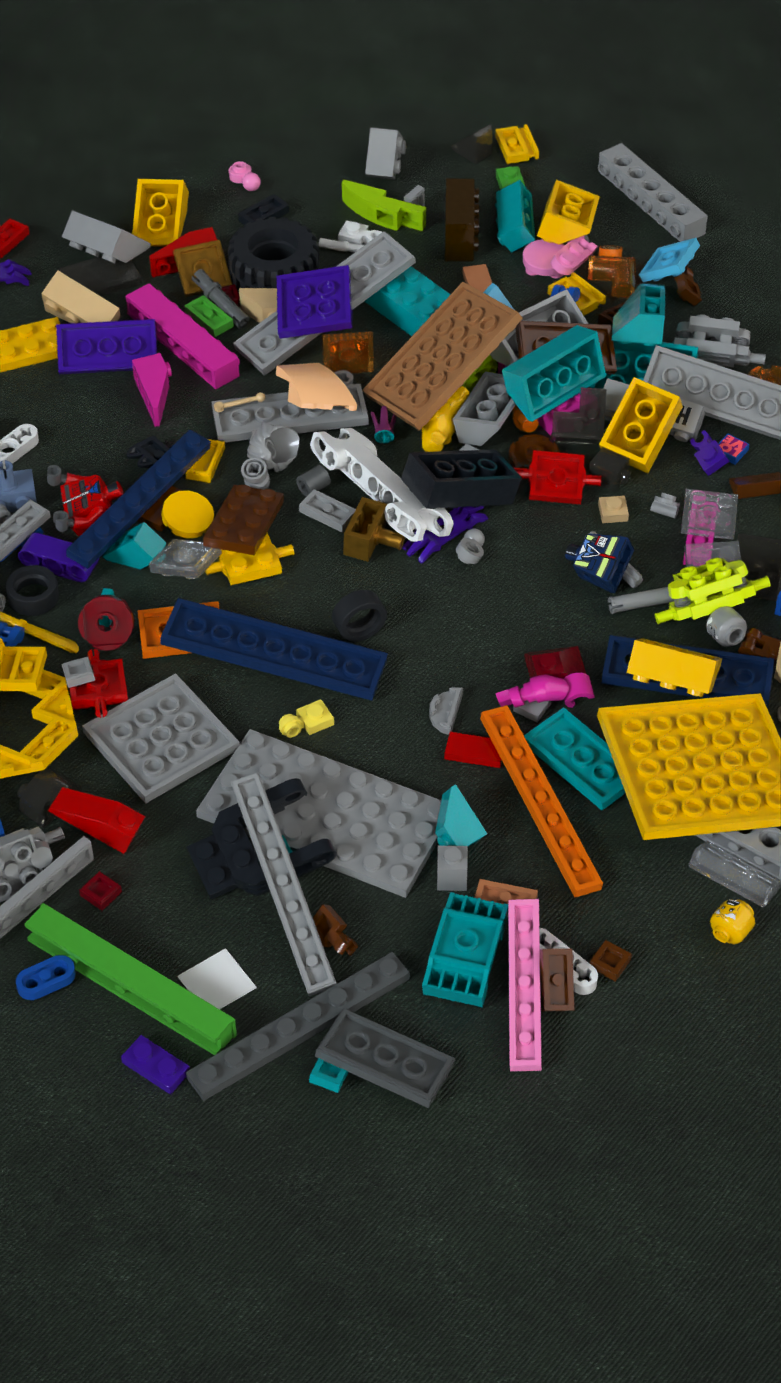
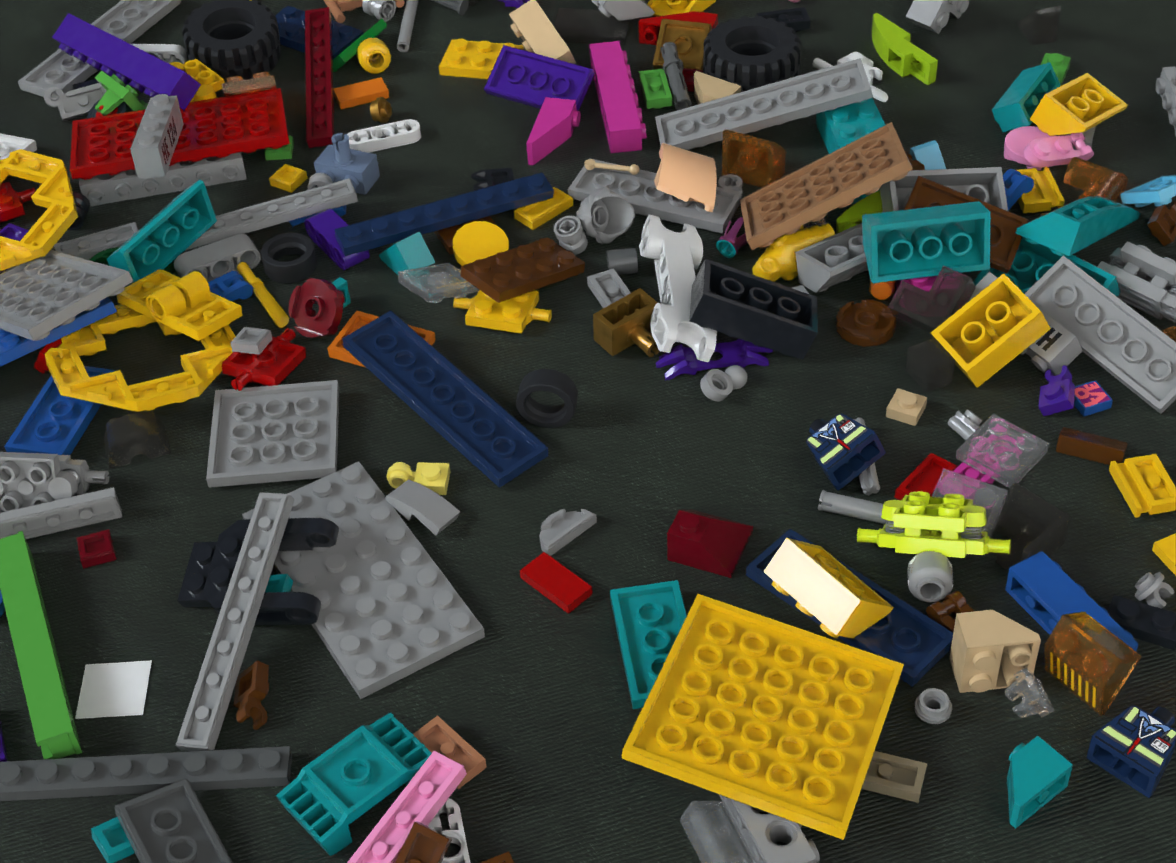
camera: 35 degrees right, 5 degrees down
(83, 499) = (395, 194): torso -> none
(99, 817) = (145, 479): red slope -> none
(314, 301) = (746, 100): dark purple plate -> none
(323, 737) = (426, 505): none -> light grey slope
(416, 196) = (939, 50): light grey tile -> none
(452, 868) = (420, 689): light grey brick -> none
(456, 821) = (459, 647): teal slope -> none
(461, 220) = (962, 81): dark brown brick -> none
(477, 276) = (948, 143): nougat tile -> none
(516, 144) = (1085, 38): yellow plate -> none
(533, 710) = (654, 564): light grey tile -> none
(541, 801) = (568, 670): orange plate -> none
(548, 688) = (675, 553): dark pink piece -> none
(557, 477) = (866, 350): red plate -> none
(610, 251) = (1106, 161): orange tile -> none
(668, 558) = (925, 476): none -> red tile

